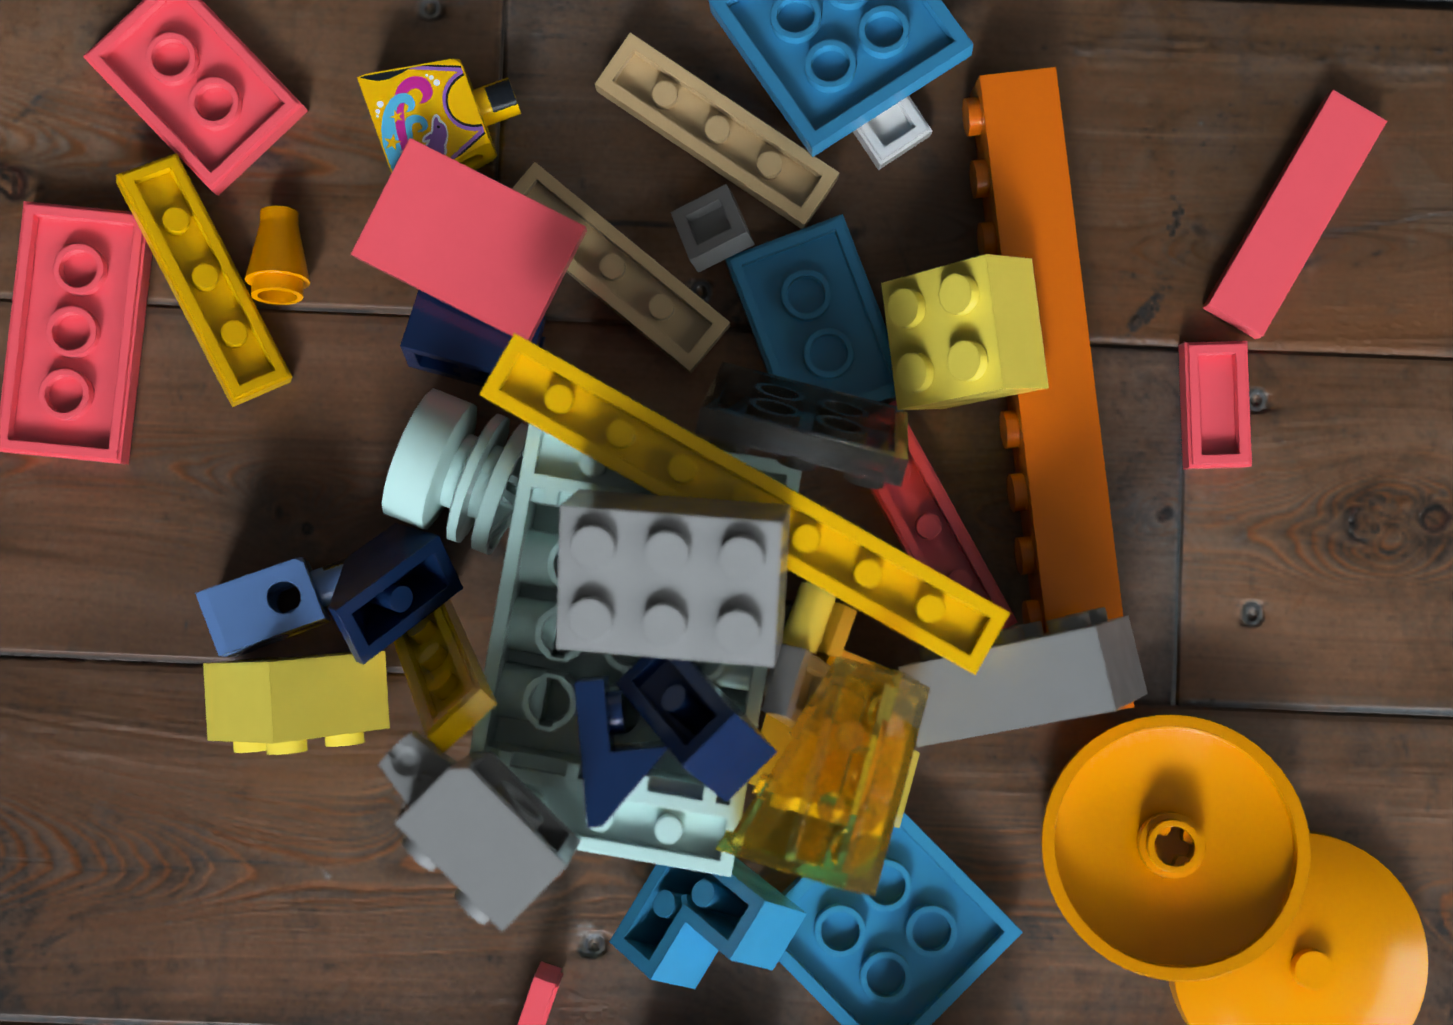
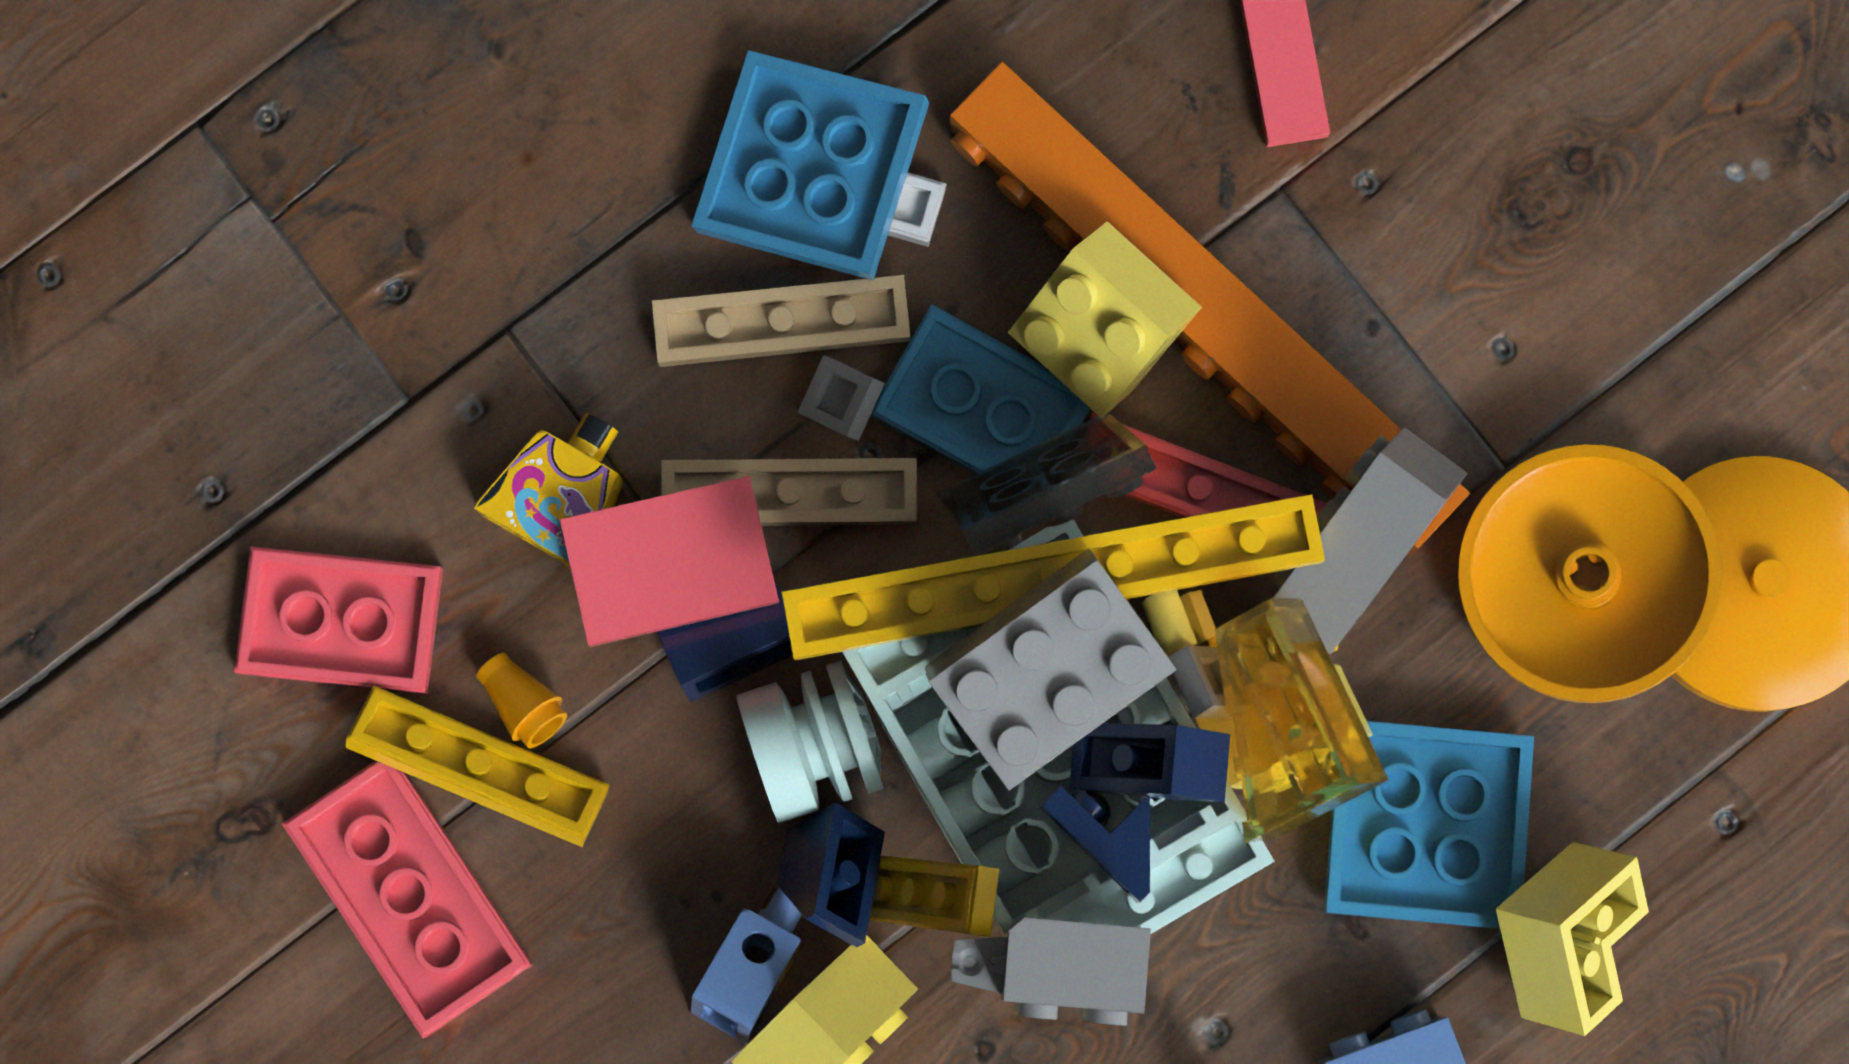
camera: 35 degrees left, 5 degrees down
(692, 915) = (1269, 924): dark azure brick -> none
(1215, 405) = (1339, 213): coral tile -> none

